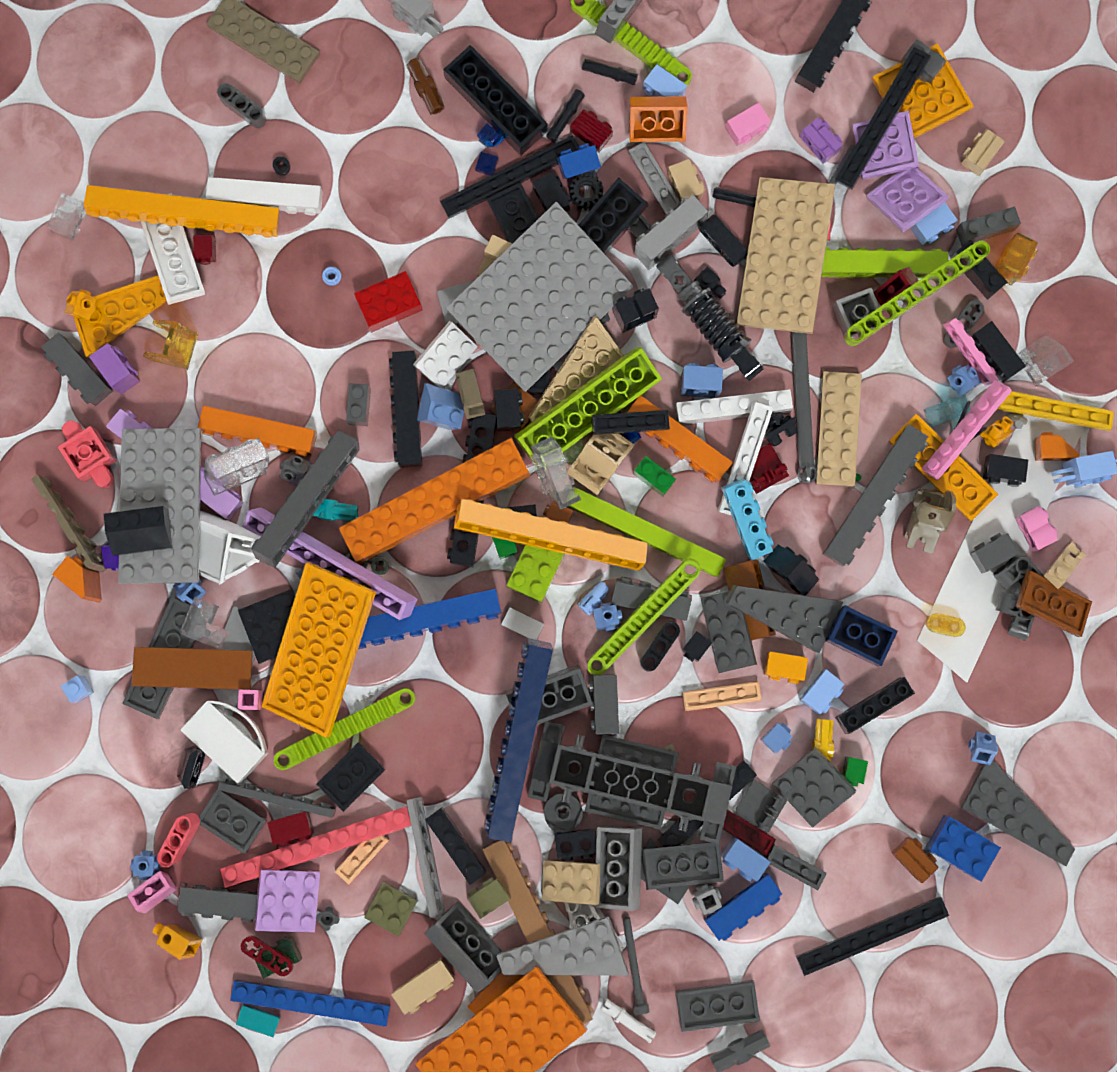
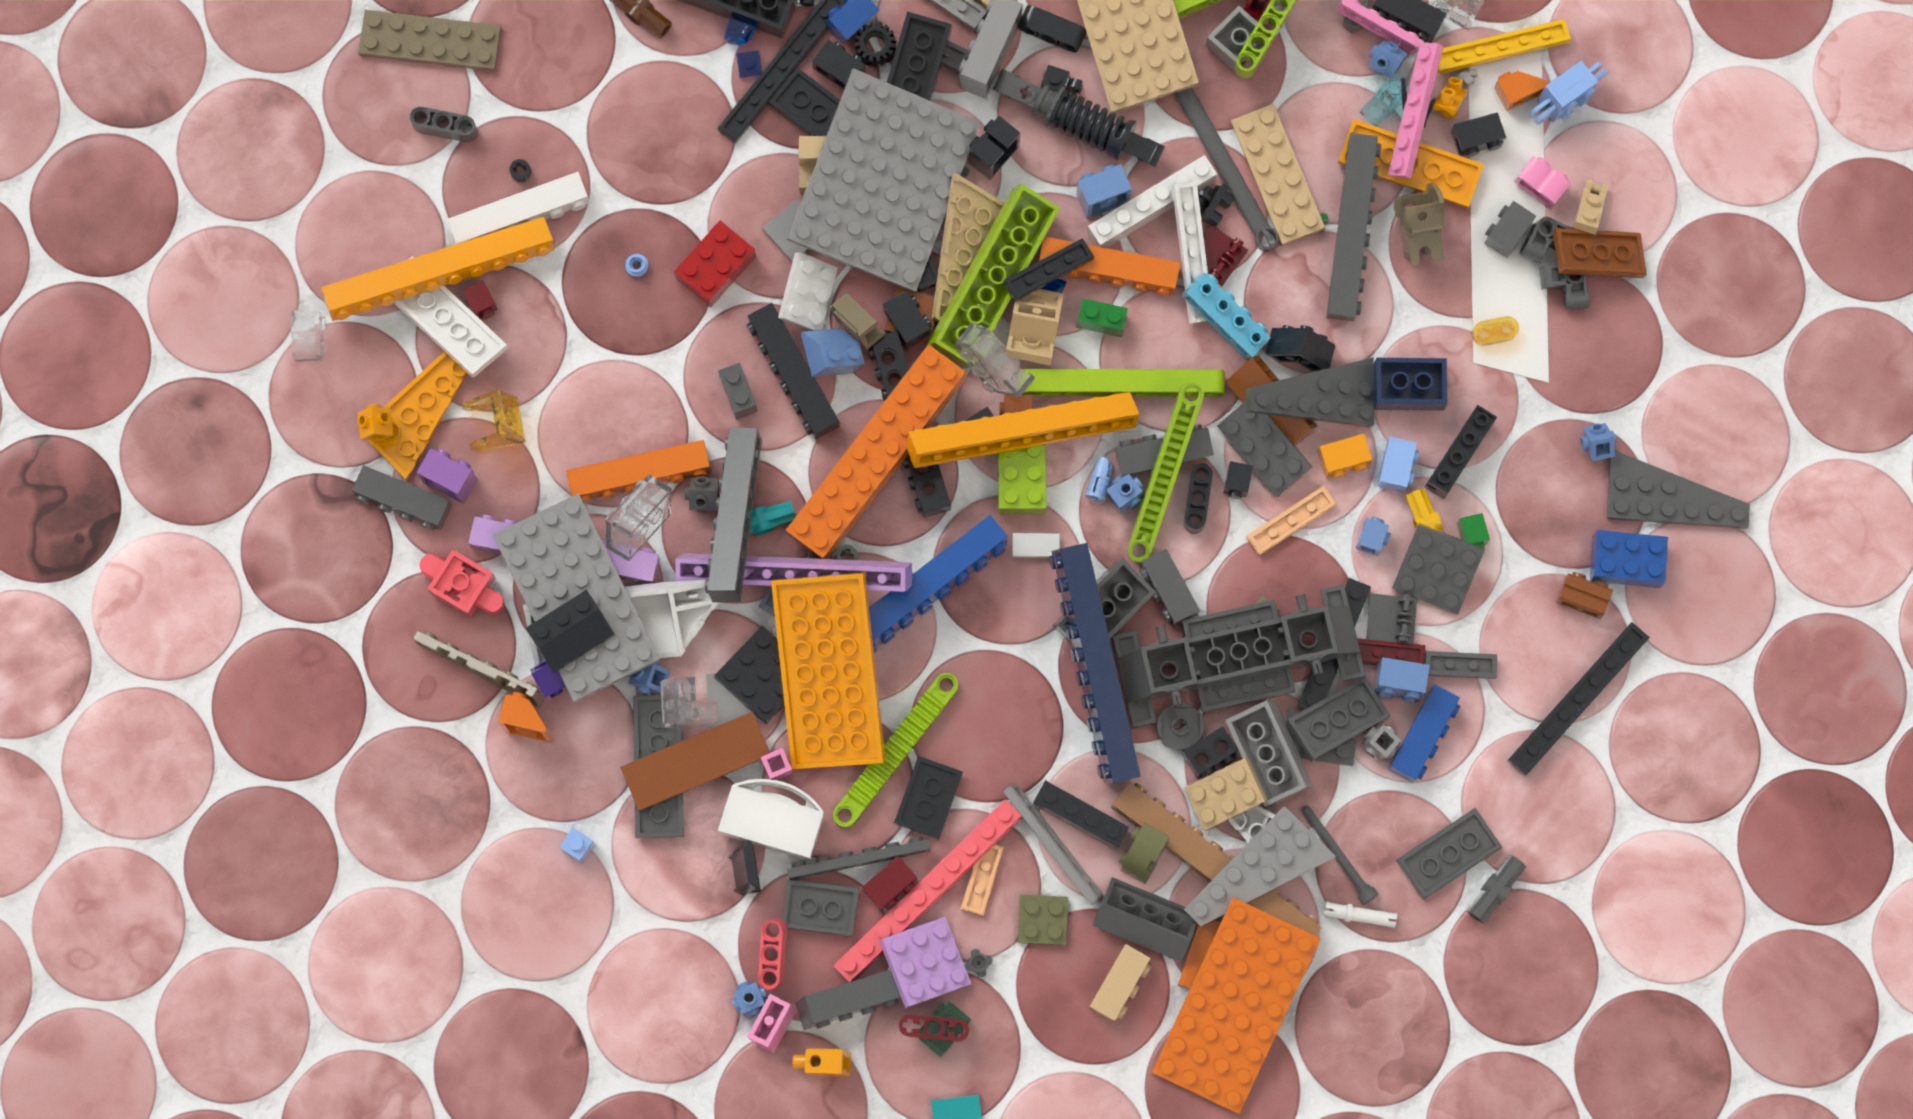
camera: 25 degrees left, 5 degrees down
(310, 1002) = (1004, 1063): blue plate -> none
(504, 547) = (974, 469): green brick -> none

